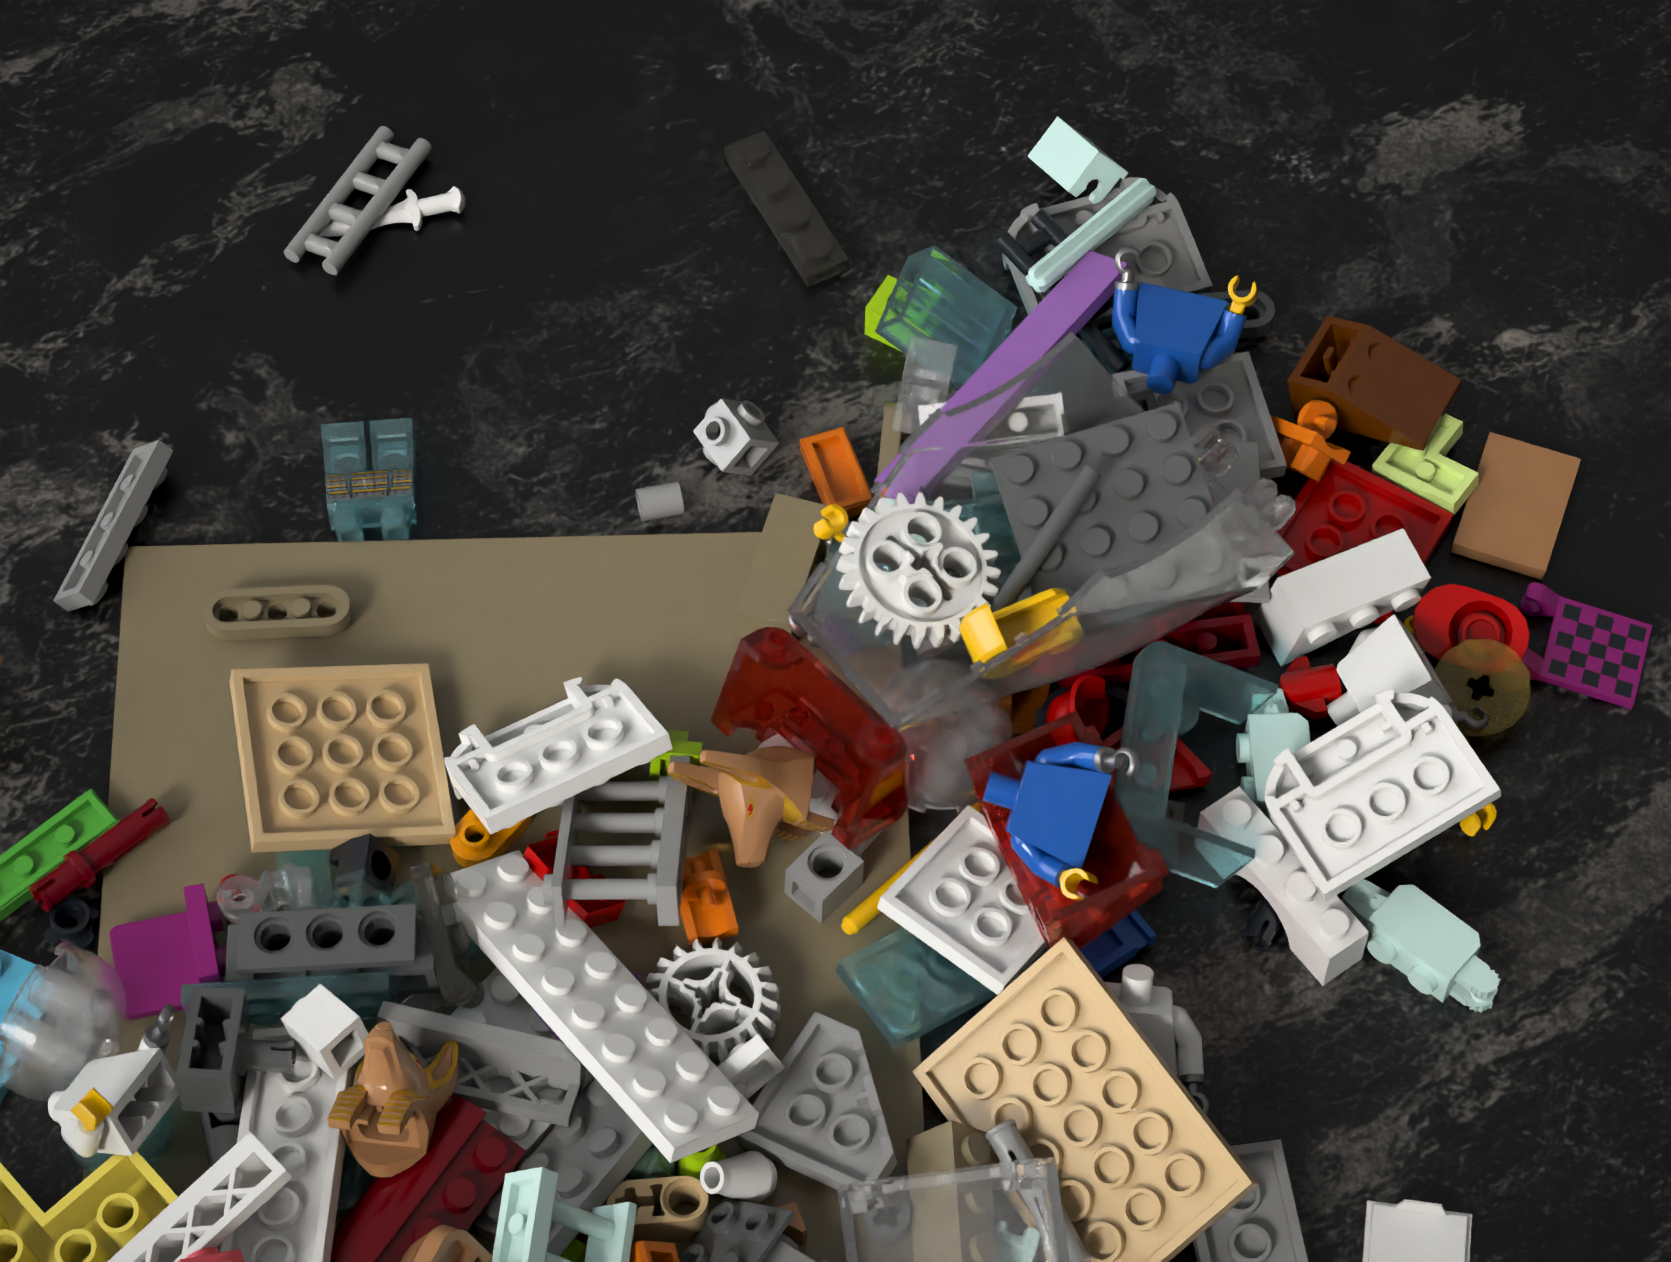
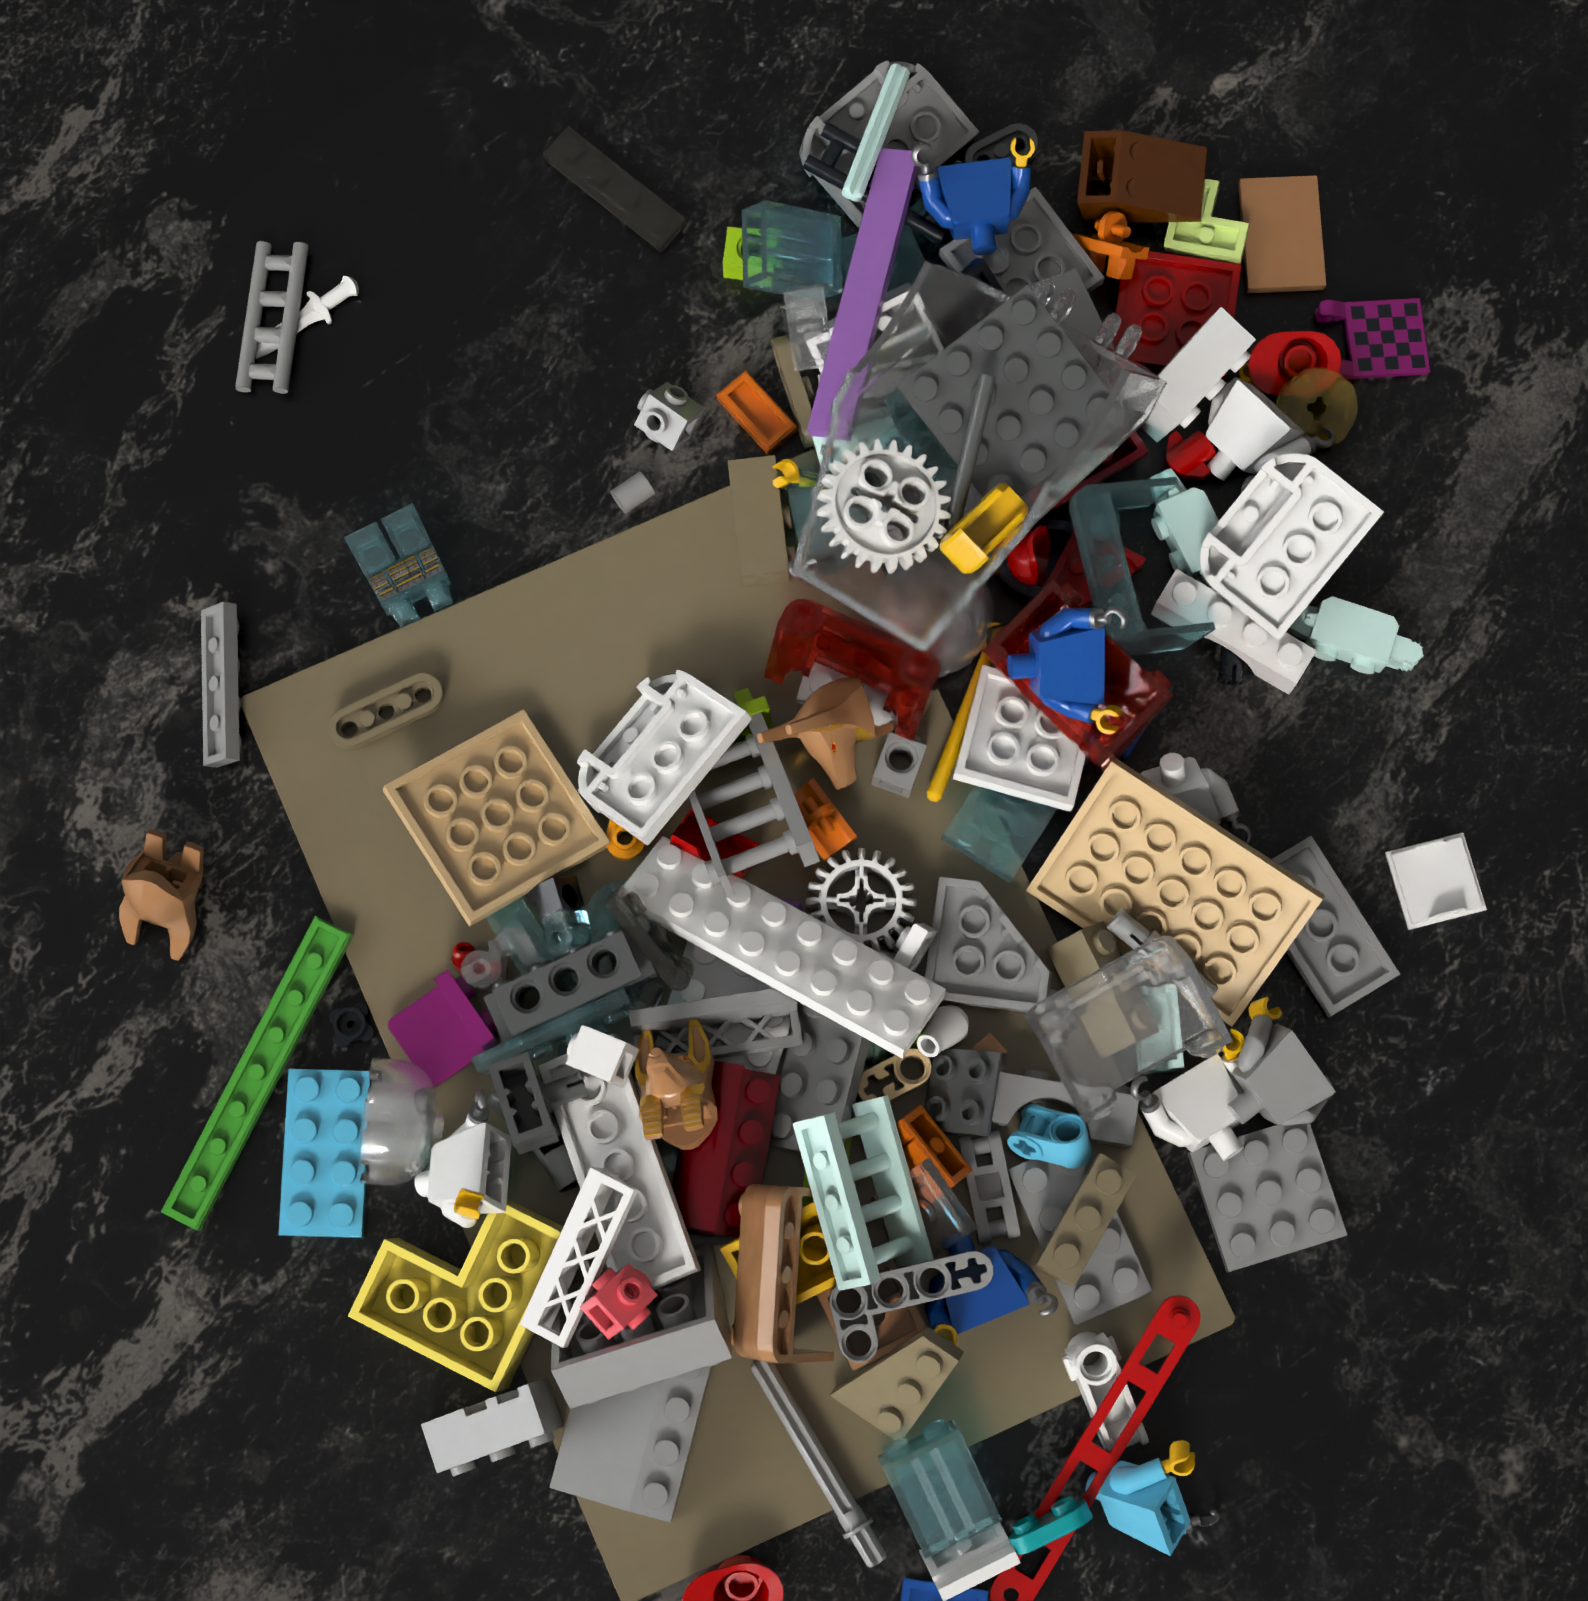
camera: 20 degrees left, 20 degrees up
(83, 866) = (348, 968): dark red pin -> none
(1075, 161) = (831, 63): light aqua hinge -> none

